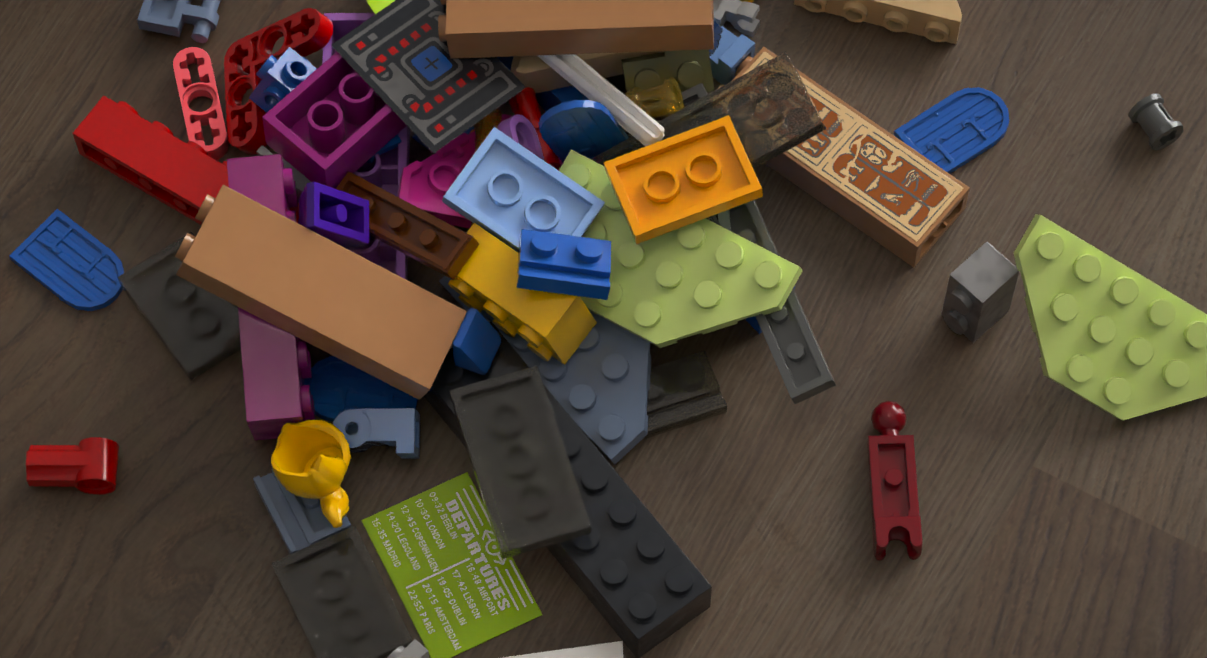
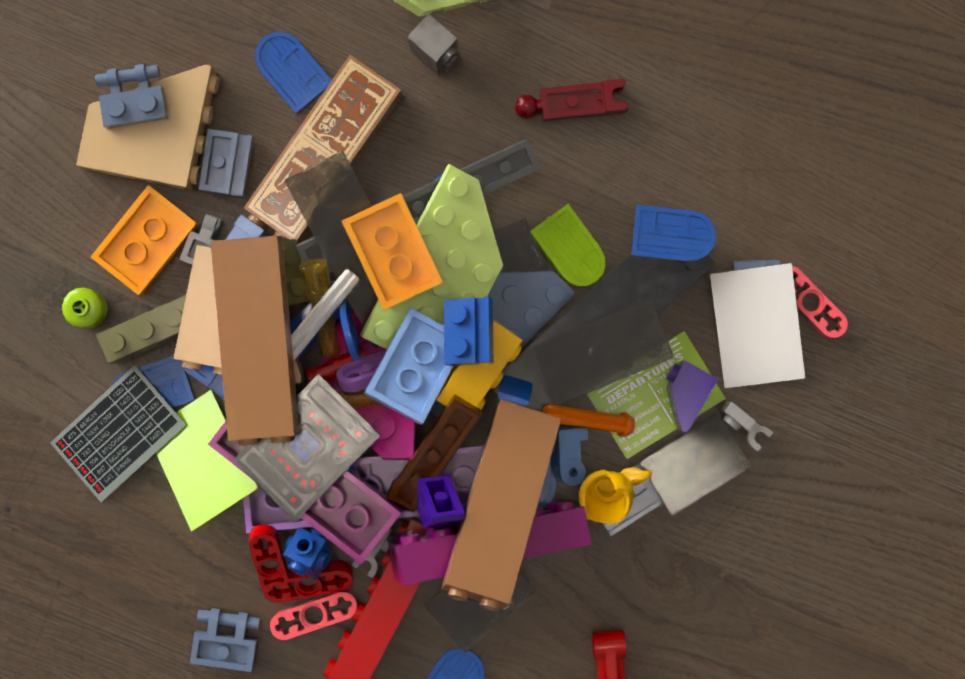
camera: 100 degrees left, 25 degrees up
(425, 454) = (621, 424): none -> orange axle
(447, 599) = (688, 392): none -> dark purple slope
(680, 462) = (570, 247): none -> lime window
(684, 575) = (672, 234): none -> blue window
(829, 40) = (226, 163): none -> sand blue plate

